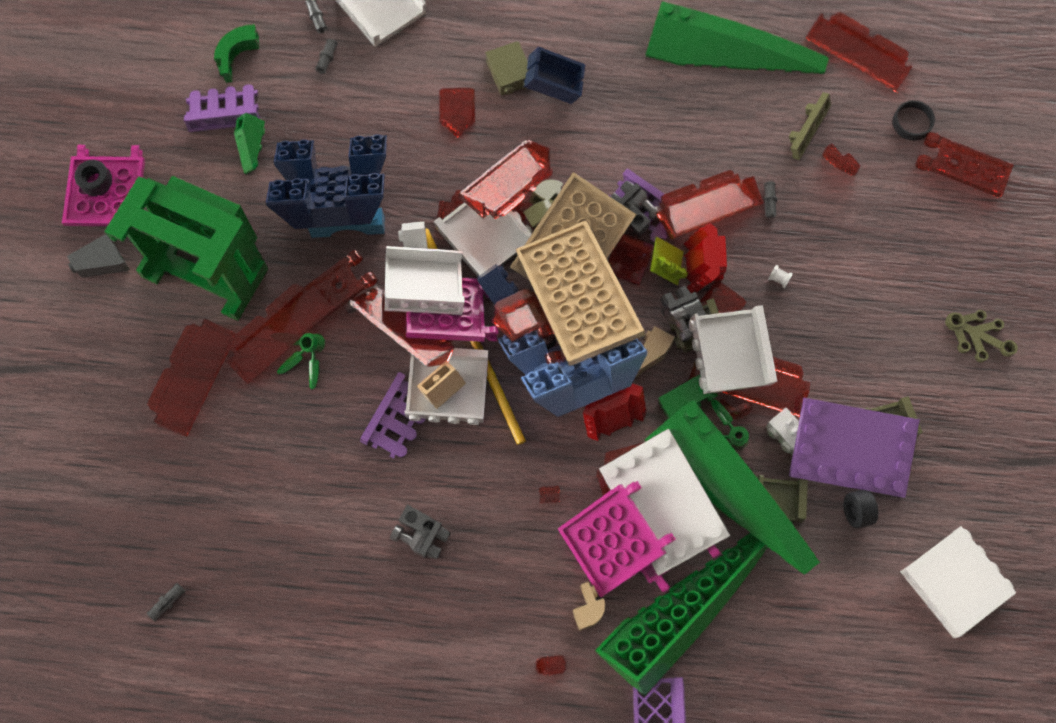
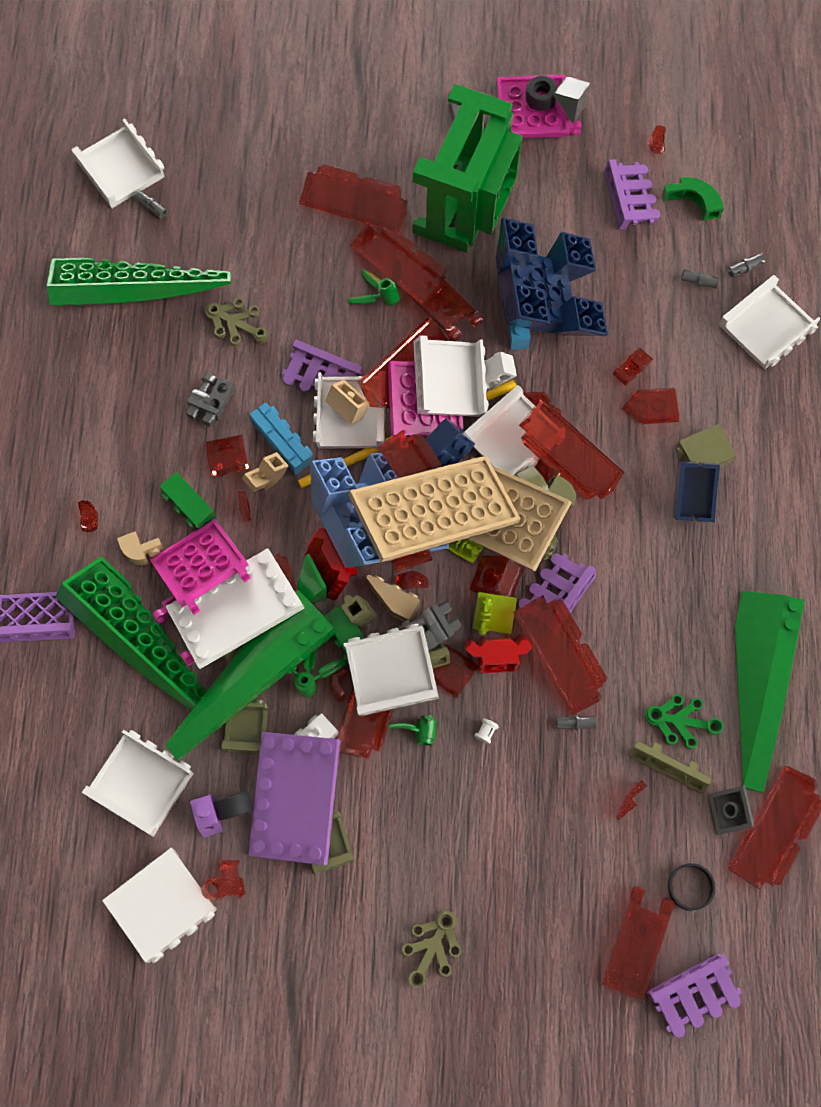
camera: 85 degrees right, 0 degrees up
(102, 147) = (572, 96): none -> dark grey slope
(106, 639) = (120, 165): none -> white panel
(163, 79) = (657, 139): none -> clear red hair
(248, 138) = (600, 217): green slope -> none
(262, 659) = (93, 282): none -> green wedge
(327, 507) = (235, 321): none -> olive plant
(414, 123) = (632, 366): none -> clear red slope
(471, 458) = (280, 438): none -> dark azure brick
(485, 515) = (227, 455): none -> clear red slope
(511, 473) = (268, 474): none -> tan brick
(538, 557) = (186, 501): none -> green brick
(633, 428) = (311, 582): none -> green slope
(634, 200) = (551, 572): dark grey hips -> none
(667, 381) = (359, 610): none -> olive brick
(766, 115) = (680, 720): none -> green plant
(781, 330) = (424, 728): none -> green plant
(837, 606) = (139, 782): none -> white panel
(848, 80) = (731, 810): none -> dark grey slope
(869, 536) = (206, 816): none -> medium lavender torso
(936, 515) = (227, 883): none -> clear red piece
(994, 130) = (684, 994): none -> medium lavender fence

